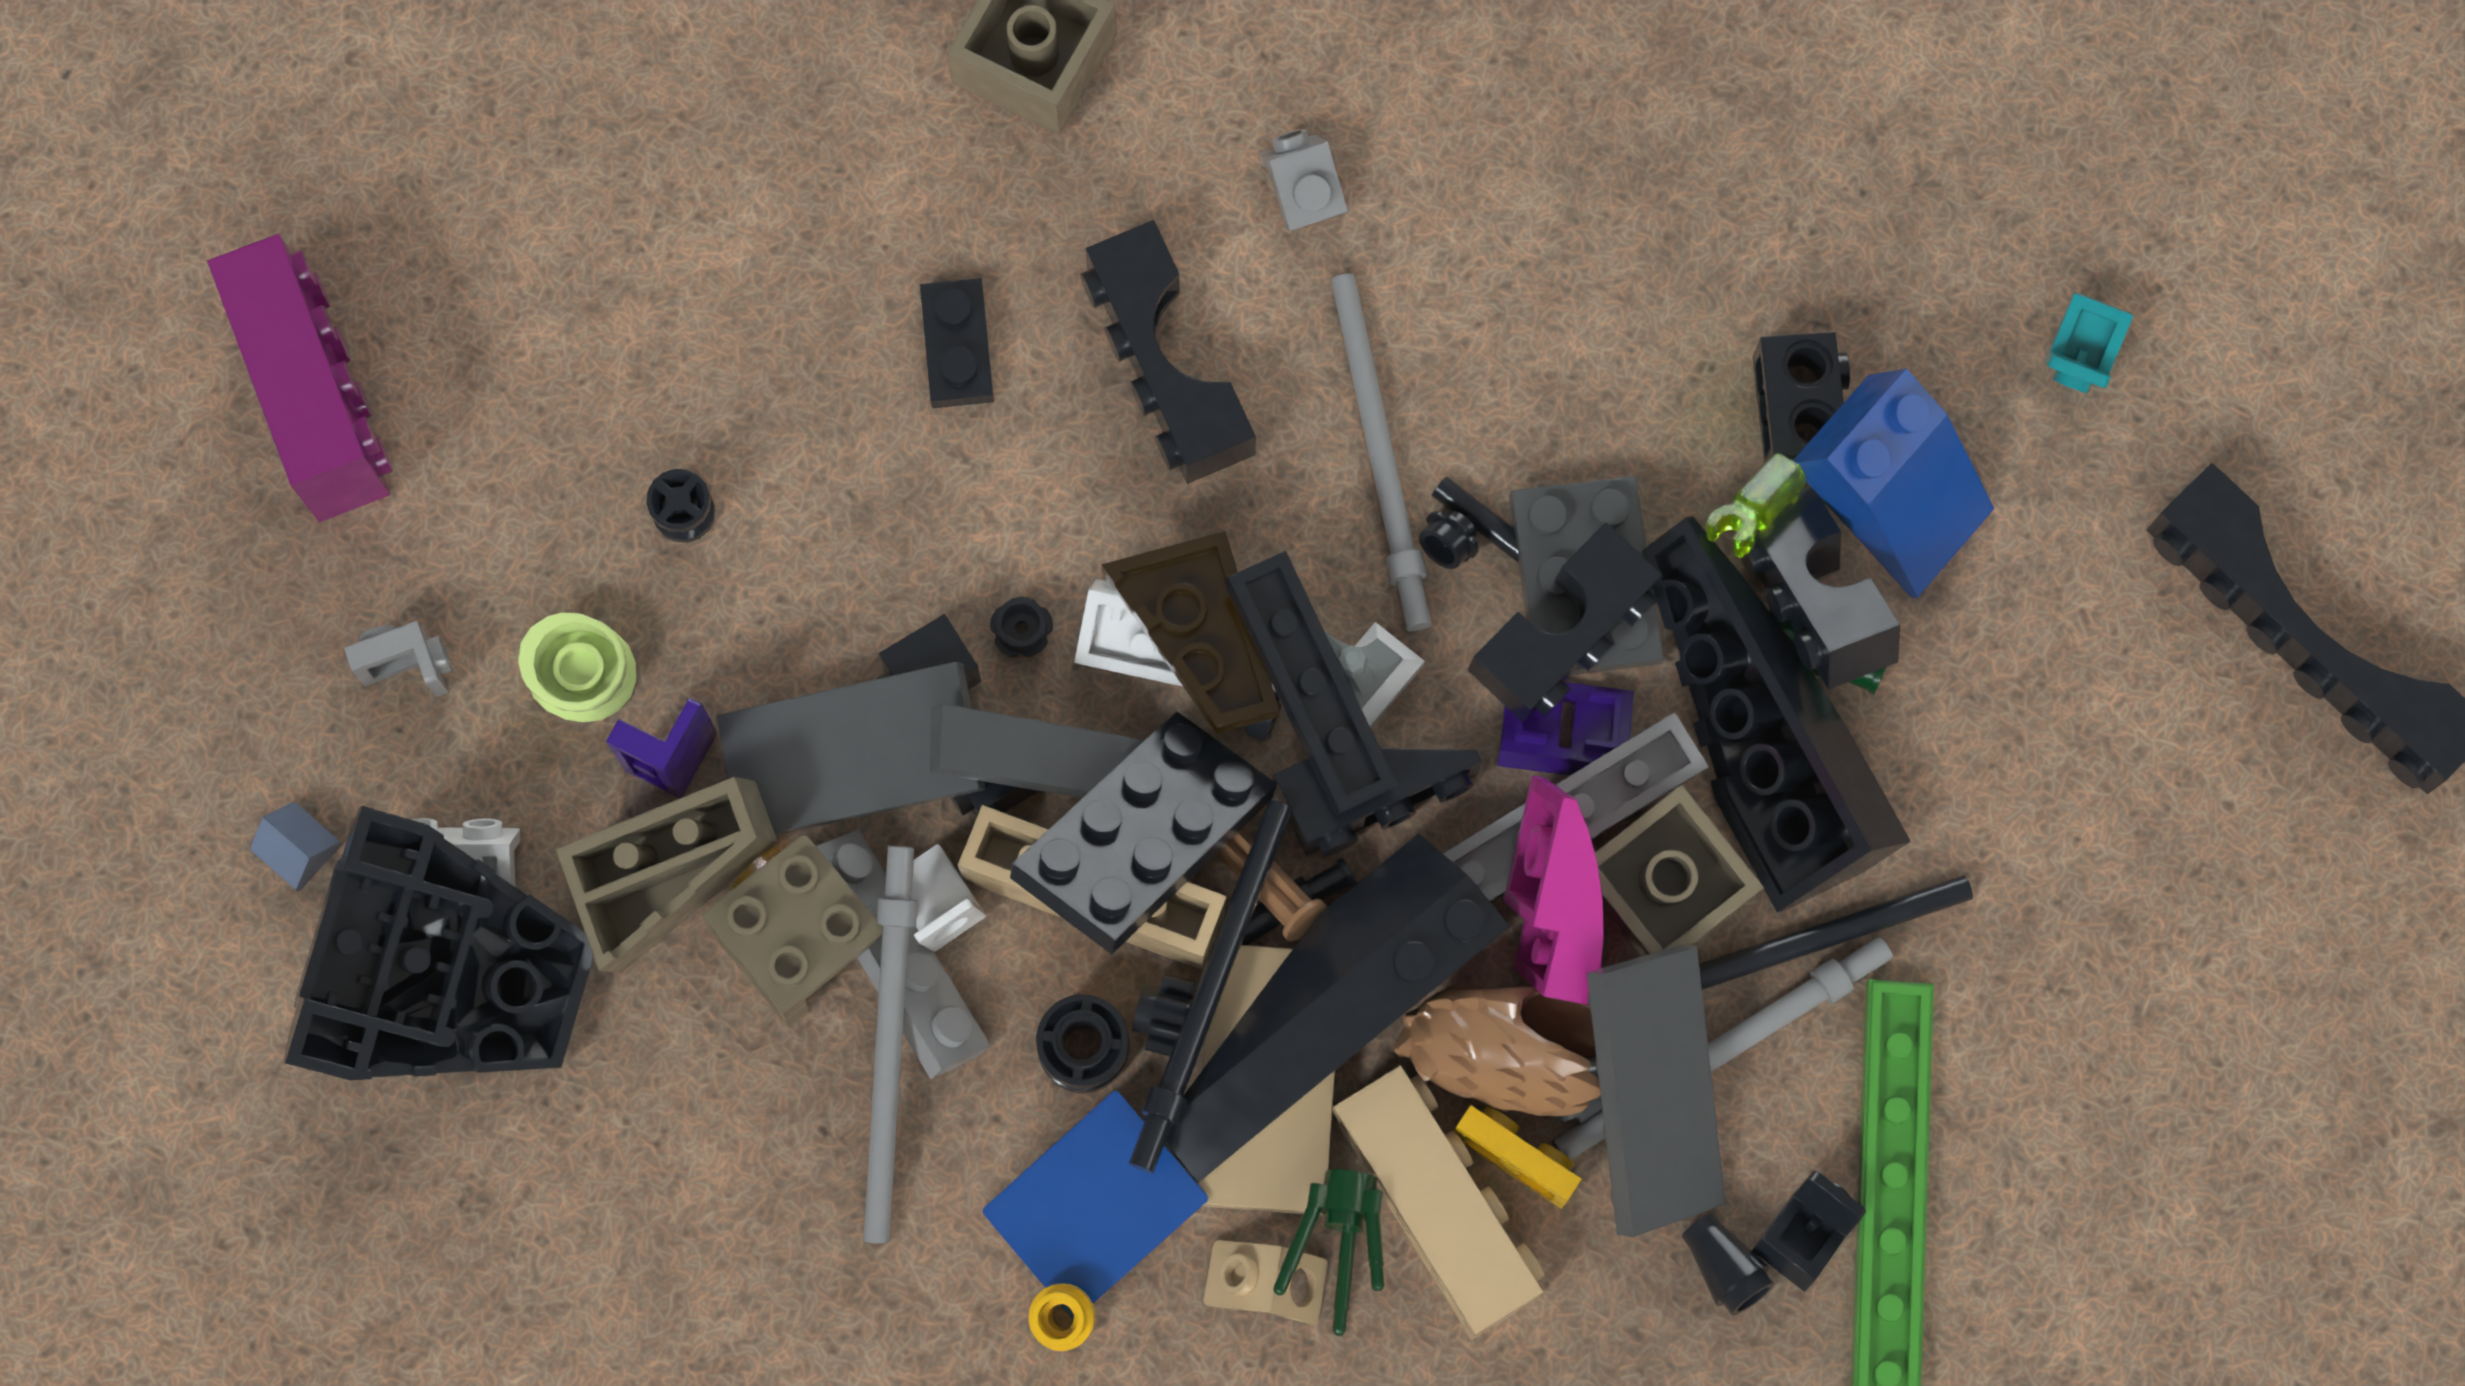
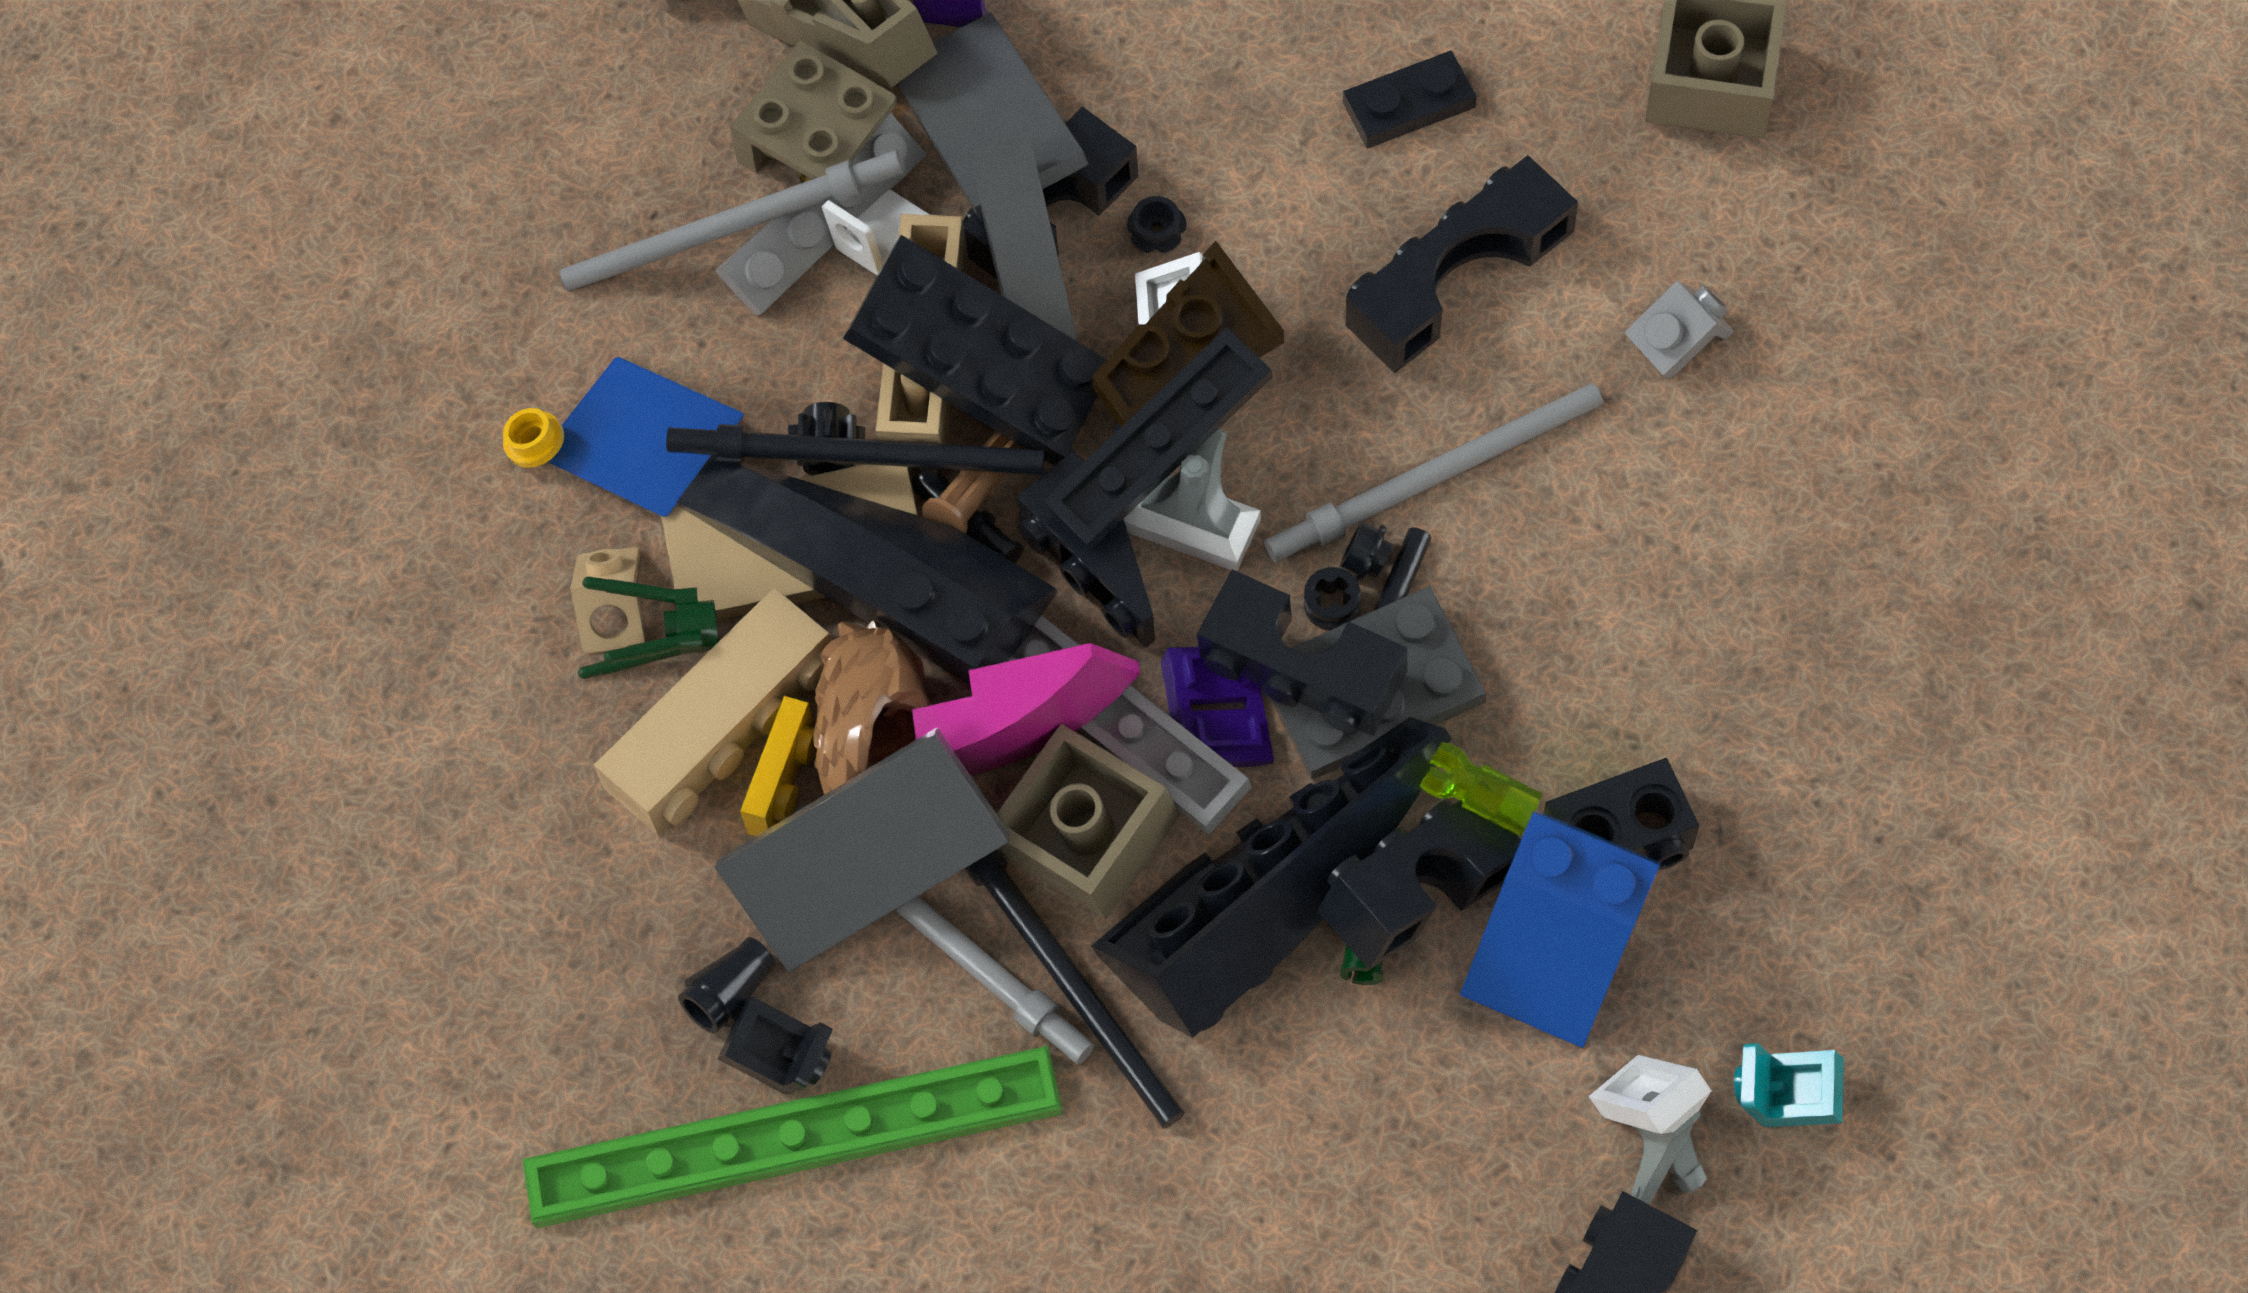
camera: 80 degrees right, 10 degrees down
(1075, 1014) = (774, 357): black wheel -> none
(1488, 565) = (1329, 581): none -> black bush
(2089, 455) = (1662, 1105): none -> white piece

